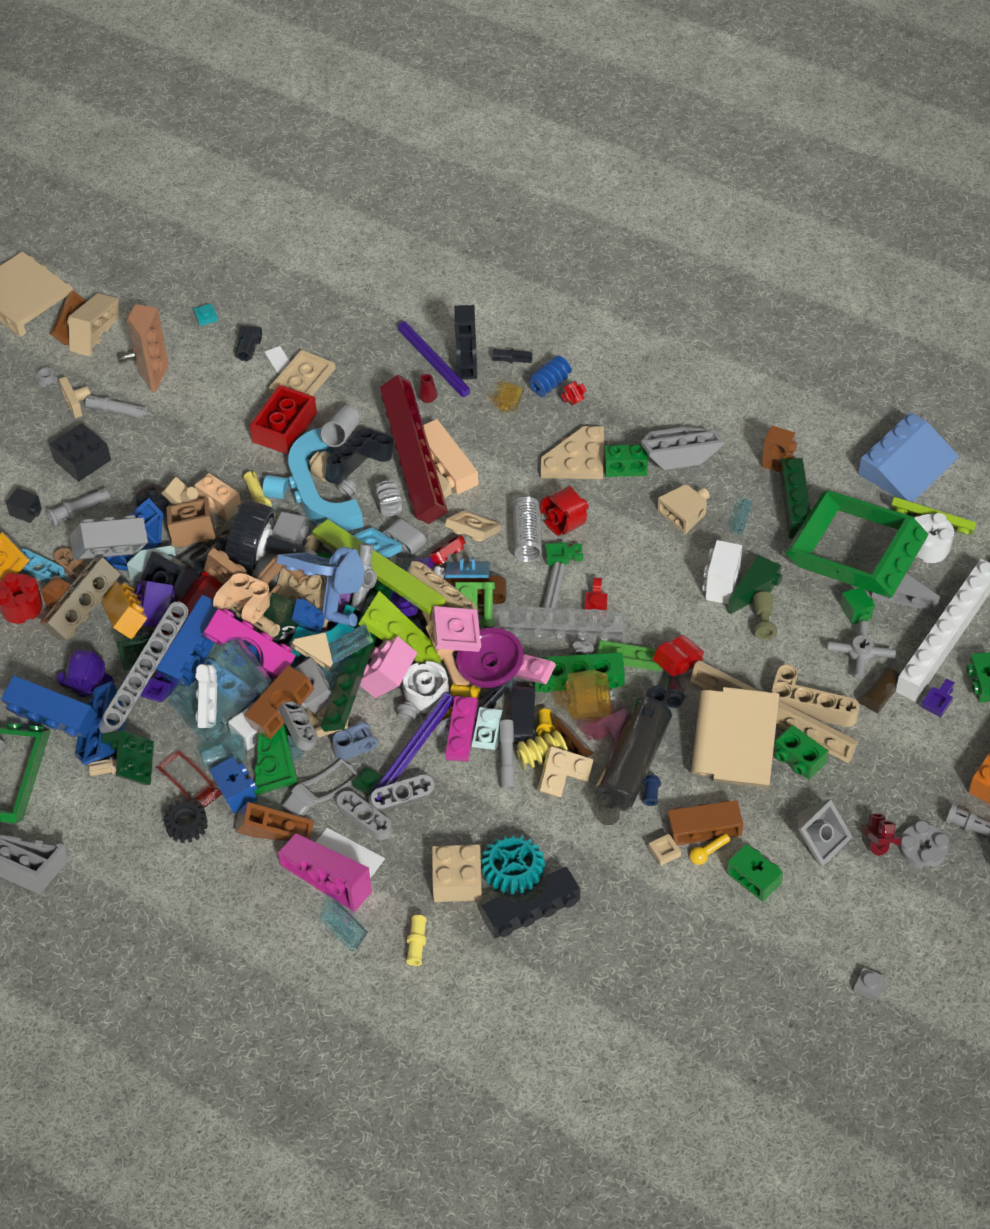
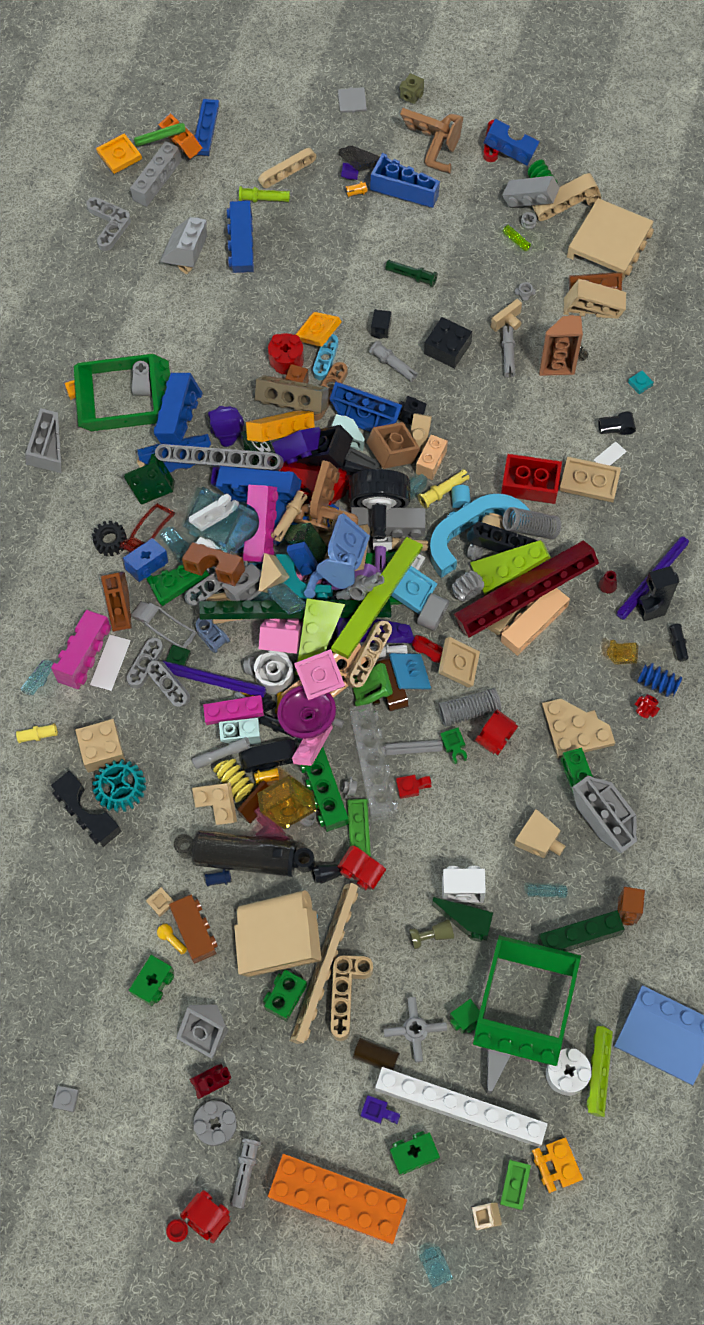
camera: 75 degrees right, 15 degrees up
(108, 537) = (341, 388): light grey brick -> none
(246, 591) = (287, 514): light nougat piece -> none
(379, 455) = (509, 565): none -> lime wing

